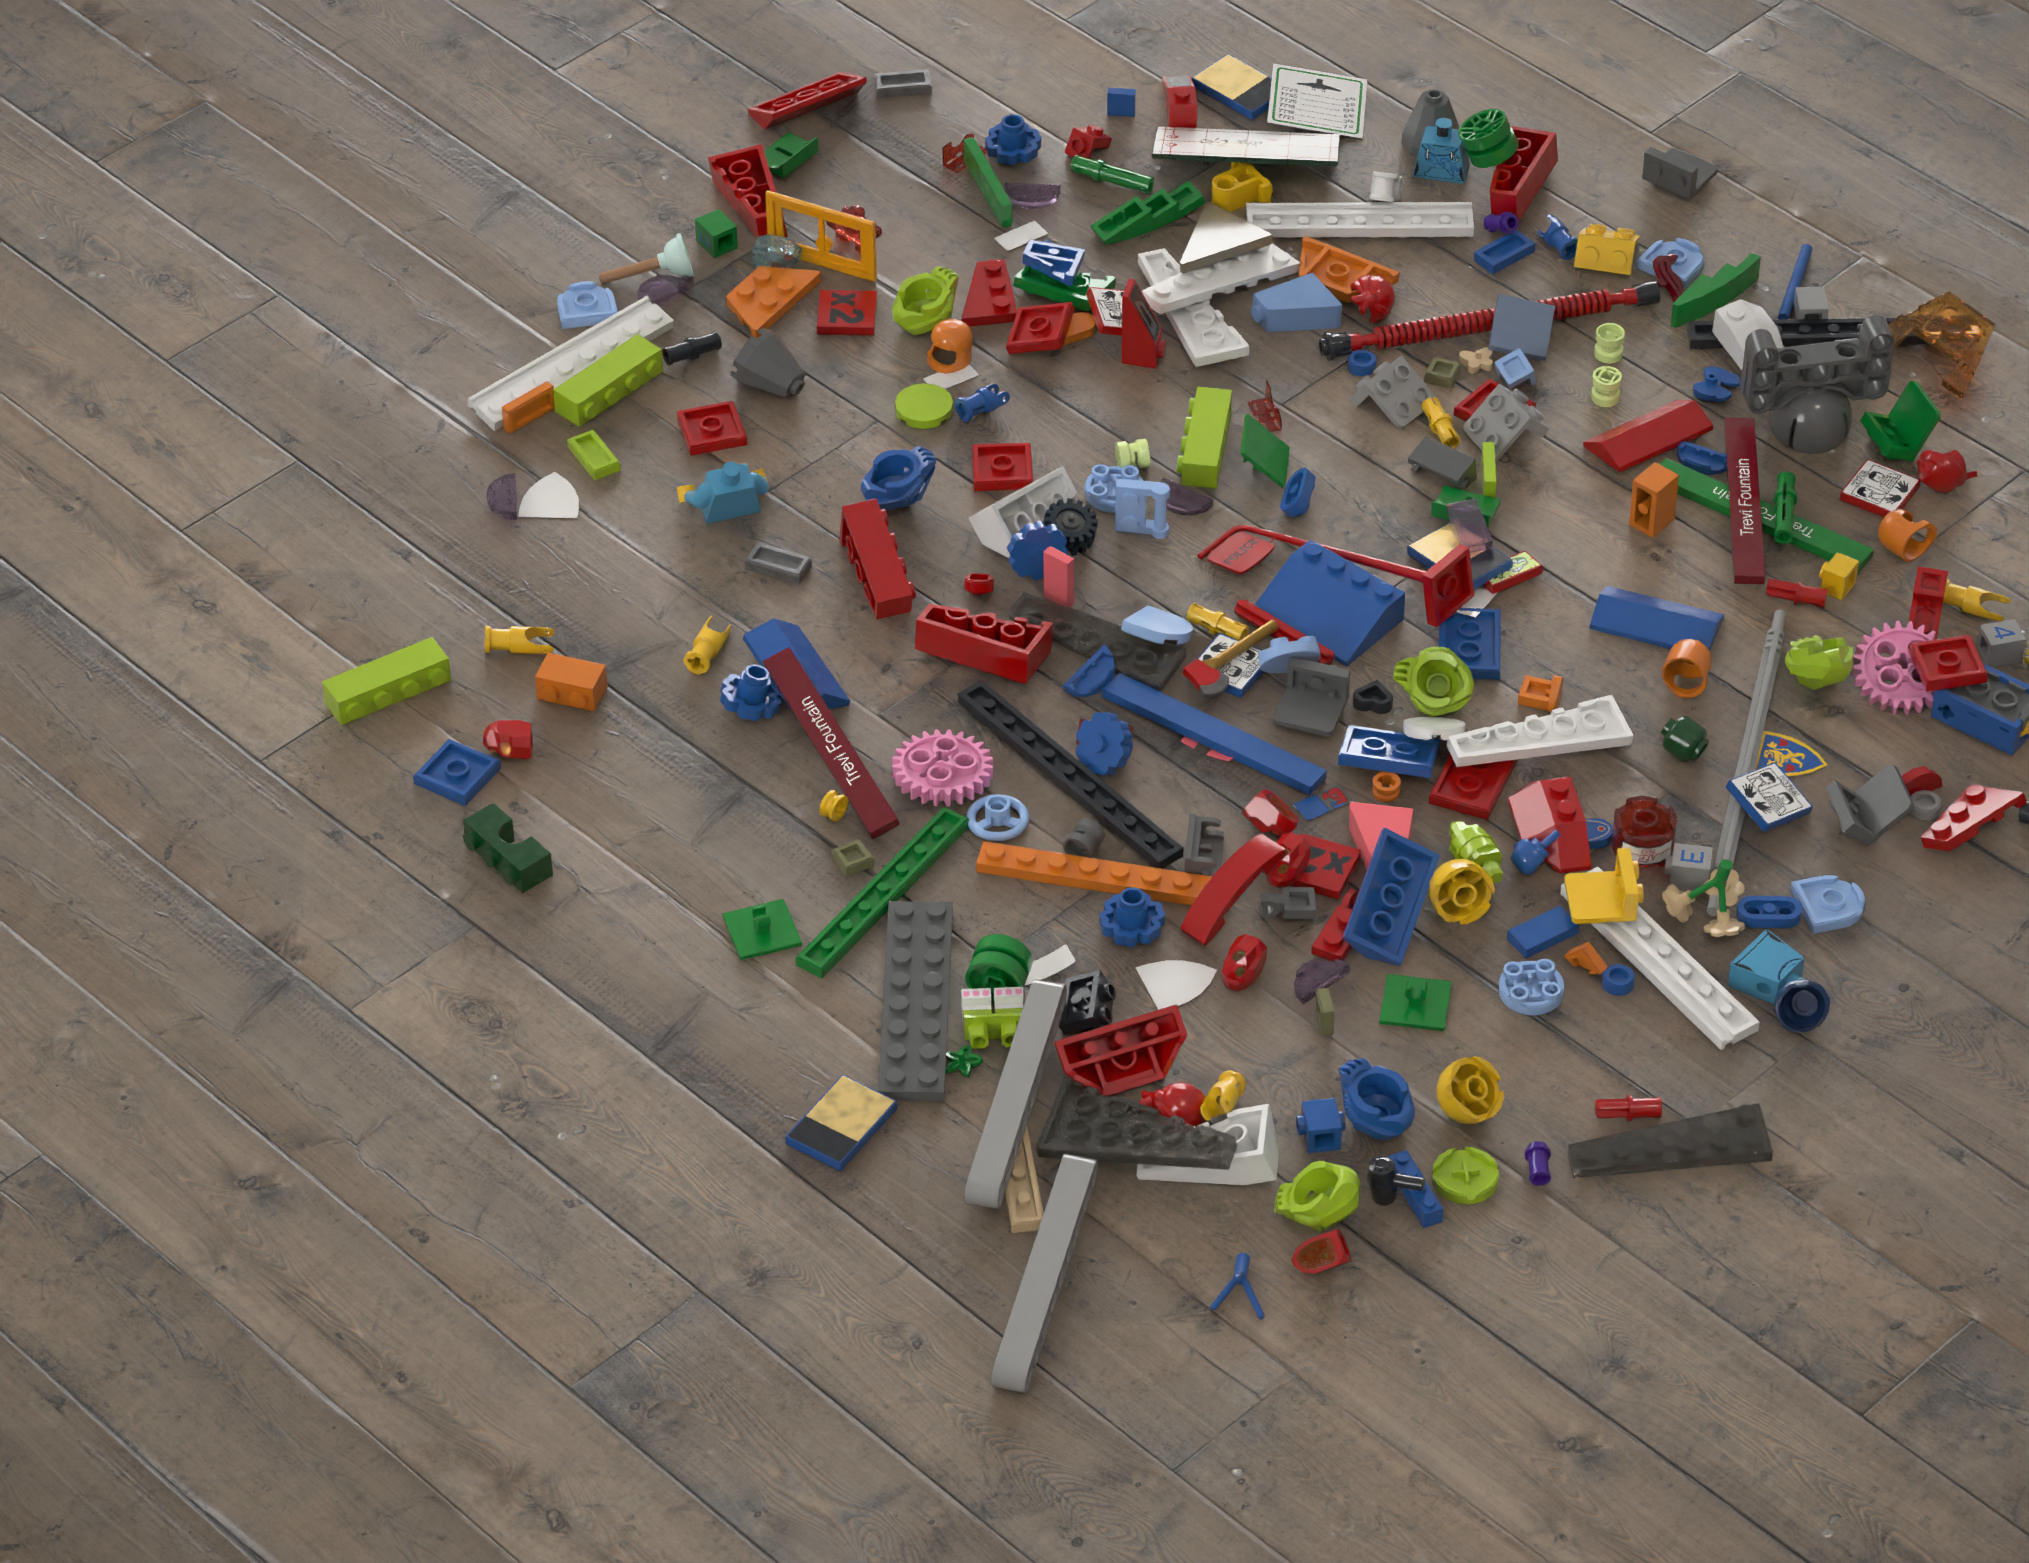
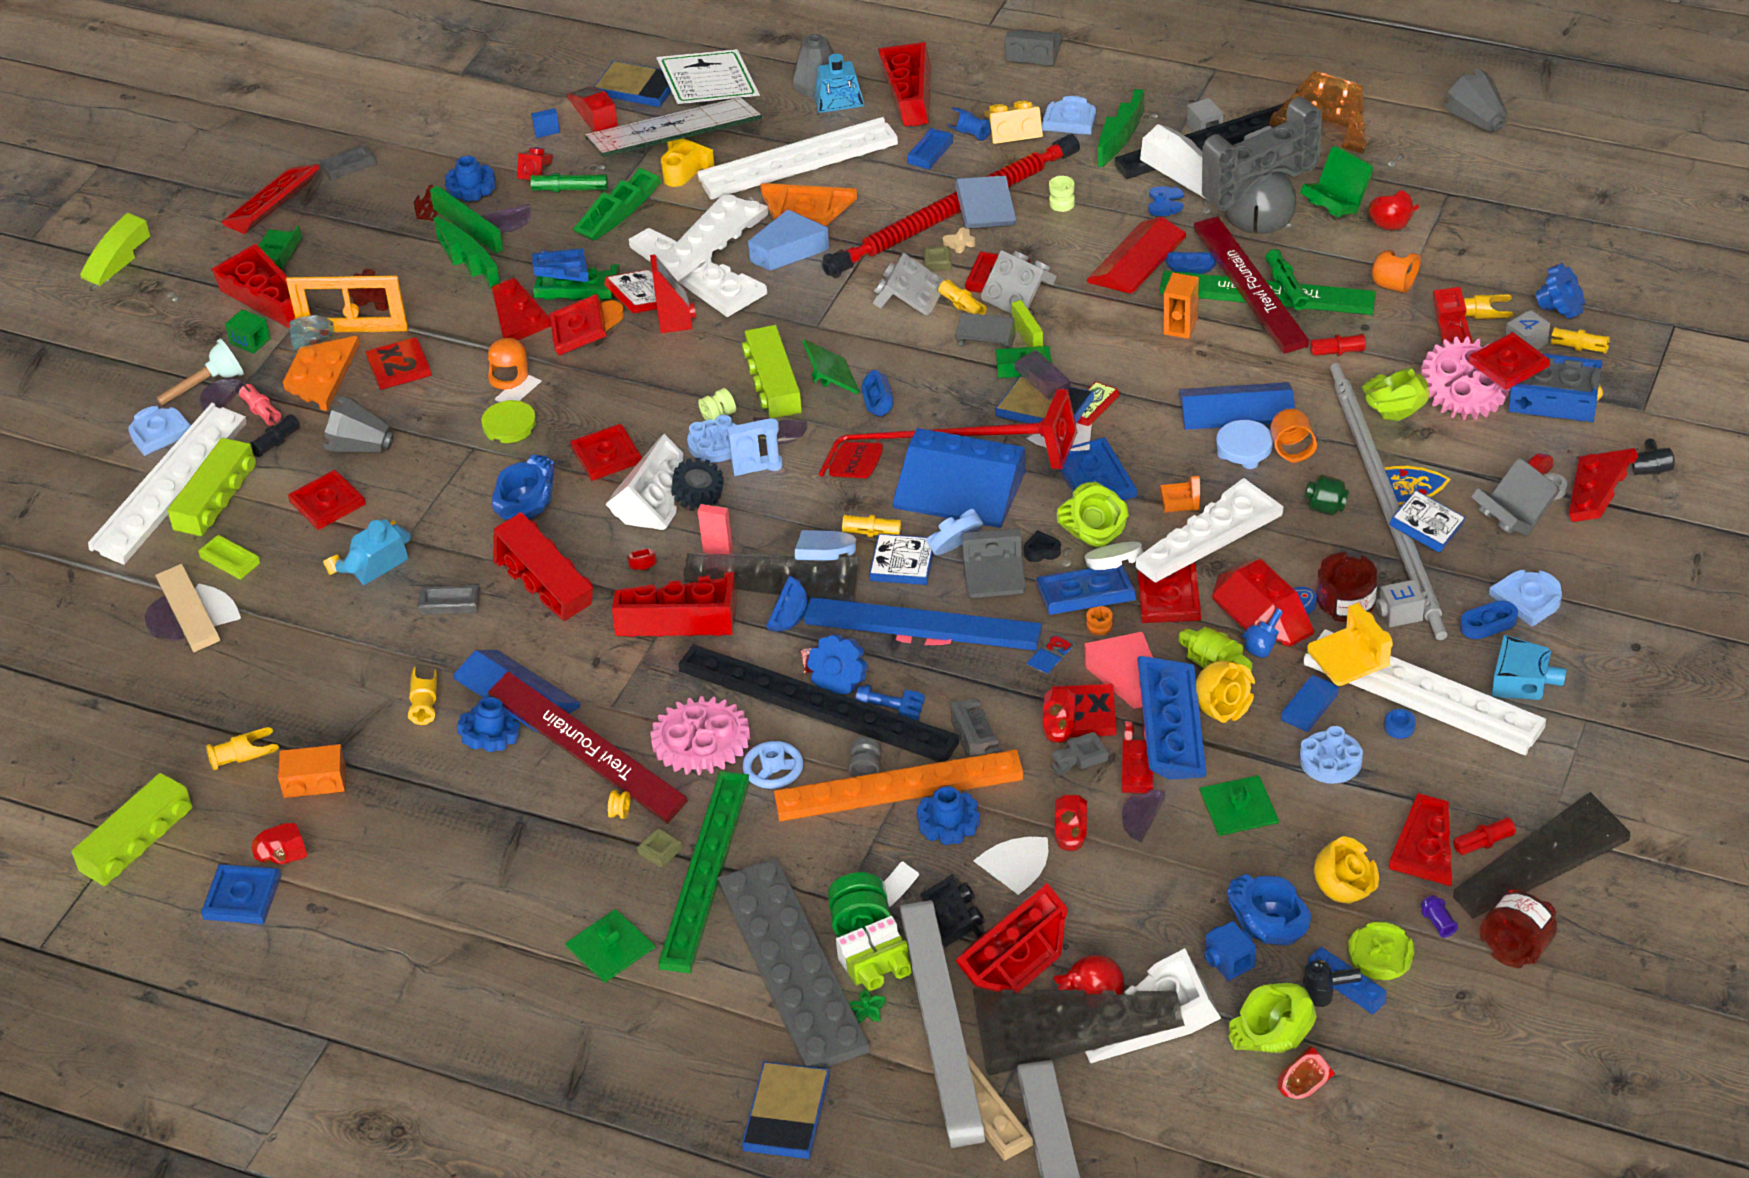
camera: 20 degrees left, 0 degrees up
(492, 837) = (348, 963): dark green arch -> none
(528, 407) = (148, 533): orange tile -> none
(532, 491) = (187, 608): none -> tan tile
(629, 107) = (115, 249): none -> lime slope
(693, 312) = (259, 404): none -> coral pin
(922, 310) = (470, 339): lime helmet -> none
(969, 215) = (464, 249): none -> green slope
(980, 402) = (559, 401): blue piece -> none
(1020, 235) = (516, 255): white sticker -> none
(1029, 546) = (680, 512): blue plant -> none
(1153, 806) = (908, 706): none -> blue hinge
(1205, 673) = (887, 572): piece -> none
(1221, 237) = (696, 204): tile -> none
(1223, 1095) = (1129, 953): yellow piece -> none
(1227, 886) = (1024, 757): red slope -> none
(1240, 1278) = (1243, 1126): blue plant -> none
(1260, 617) = (920, 512): red axle -> none
(1263, 411) = (804, 322): clear red piece -> none
(1270, 814) = (1017, 679): red rock -> none
(1324, 1011) = (1170, 841): olive tile -> none
(1362, 363) = (865, 271): blue tile -> none
(1375, 295) = (852, 213): red hat -> none
(1386, 186) = (805, 124): white piece -> none
(1488, 138) = (875, 60): green wheel -> none
(1506, 222) = (921, 124): dark purple pin -> none
(1515, 369) = (1000, 236): light blue panel -> none
(1568, 1093) = (1425, 842): none -> red wing
(1587, 958) = (1364, 713): orange tile -> none
(1600, 1197) = (1519, 928): none -> clear red brick
(1606, 386) = (1080, 227): yellowish green wheel -> none
(1636, 660) = (1244, 443): none -> light blue tile
(1666, 276) = (1078, 130): dark red piece -> none
(1723, 883) = (1445, 610): tan plant -> none
(1795, 281) = (1176, 103): blue bar -> none
(1801, 1005) = (1573, 692): dark blue hair -> none
(1839, 575) = (1363, 319): yellow plate -> none
(1879, 488) = (1348, 243): tile -> none

